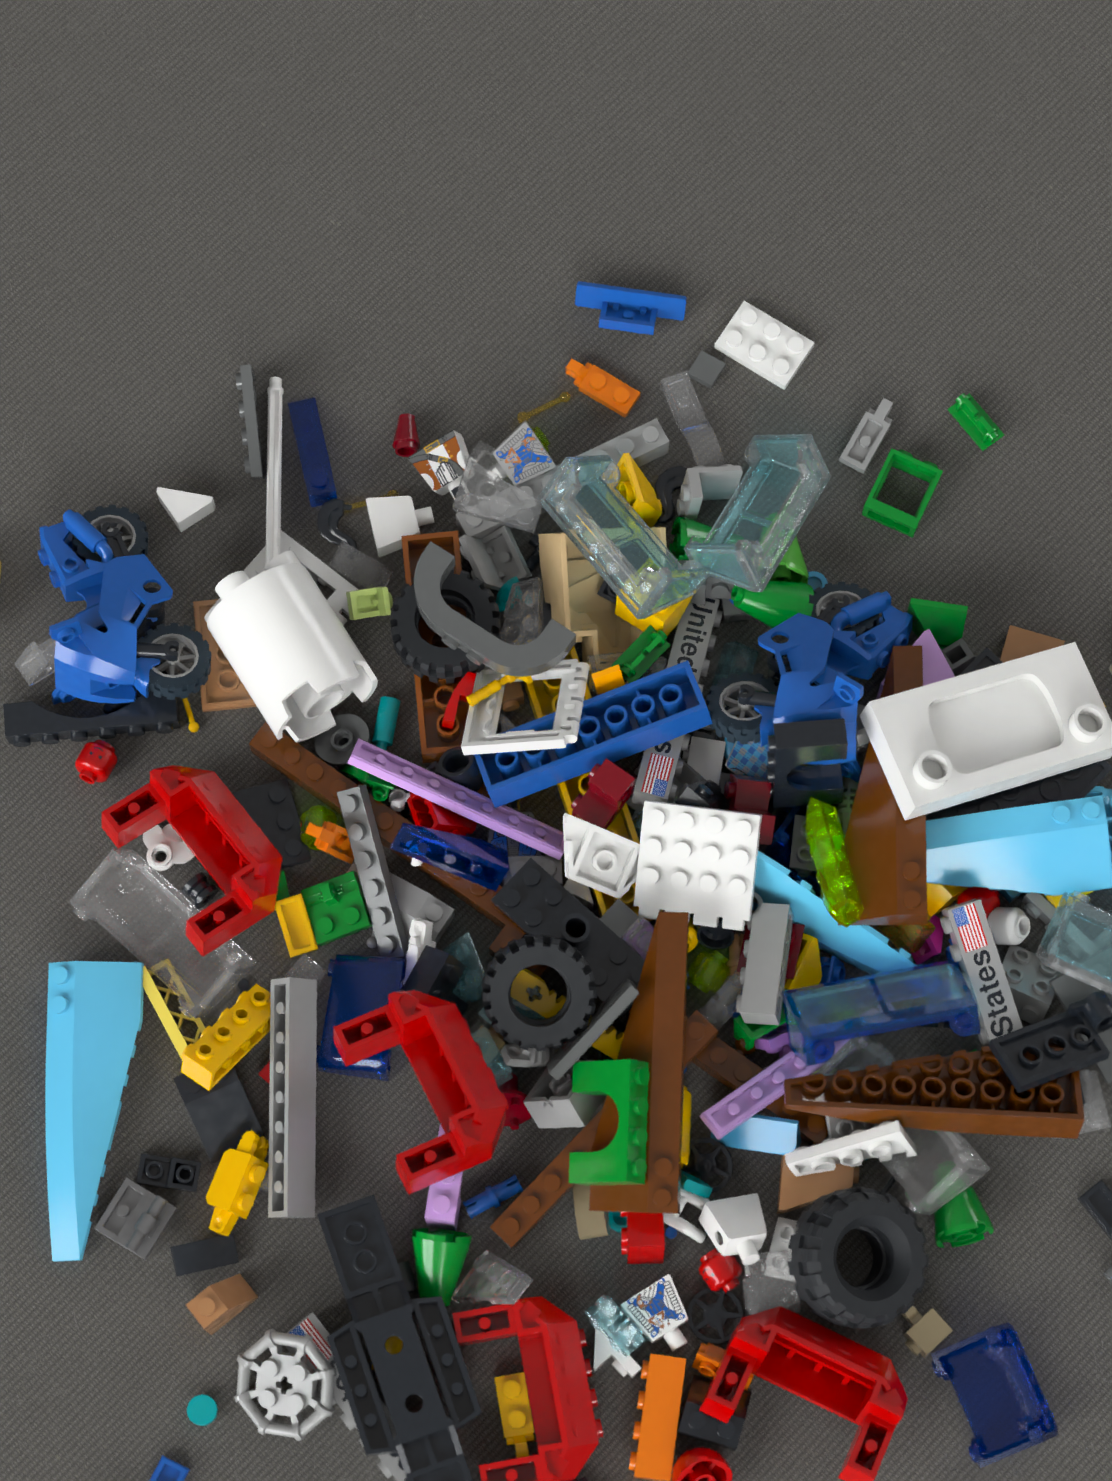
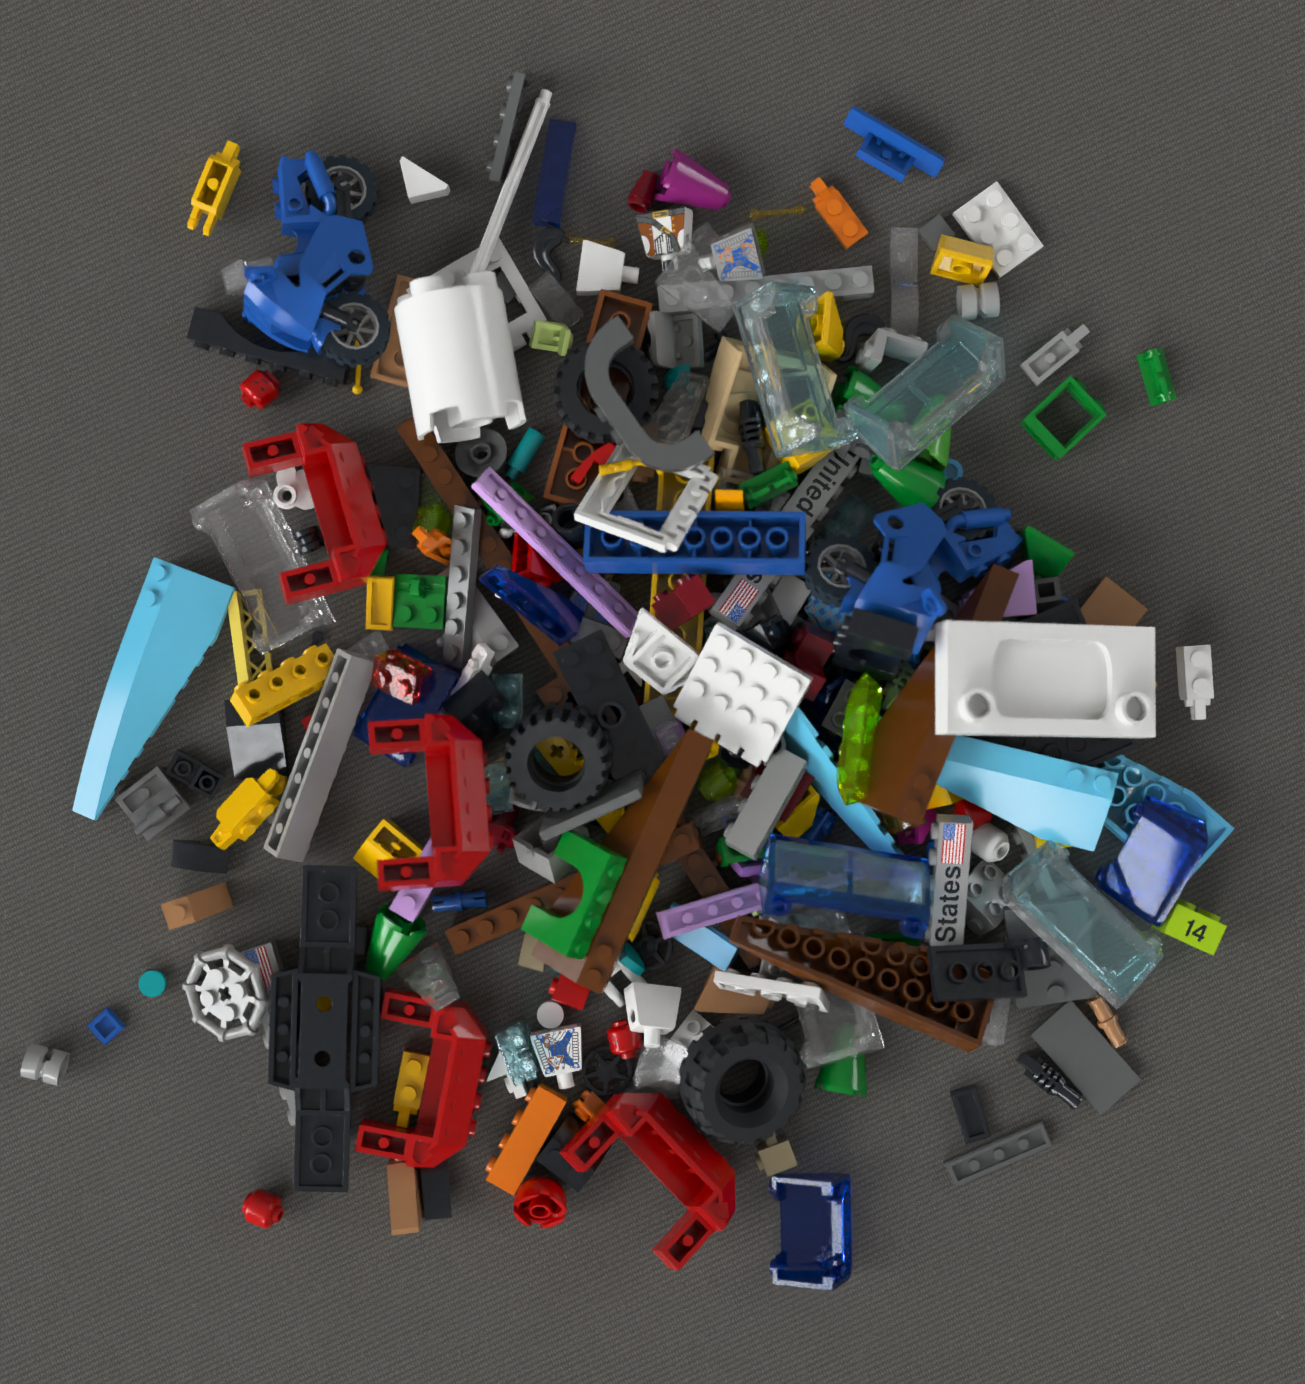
camera: 20 degrees right, 15 degrees up
(344, 982) = (399, 675): none -> clear red bracket
(386, 1182) = (386, 842): none -> yellow slope
(450, 409) = (691, 184): none -> magenta cone
(606, 616) = (752, 435): none -> black hinge
(632, 1279) = (550, 1014): none -> white tile
(742, 384) = (962, 260): none -> yellow slope
(775, 413) = (976, 301): none -> light grey wheel

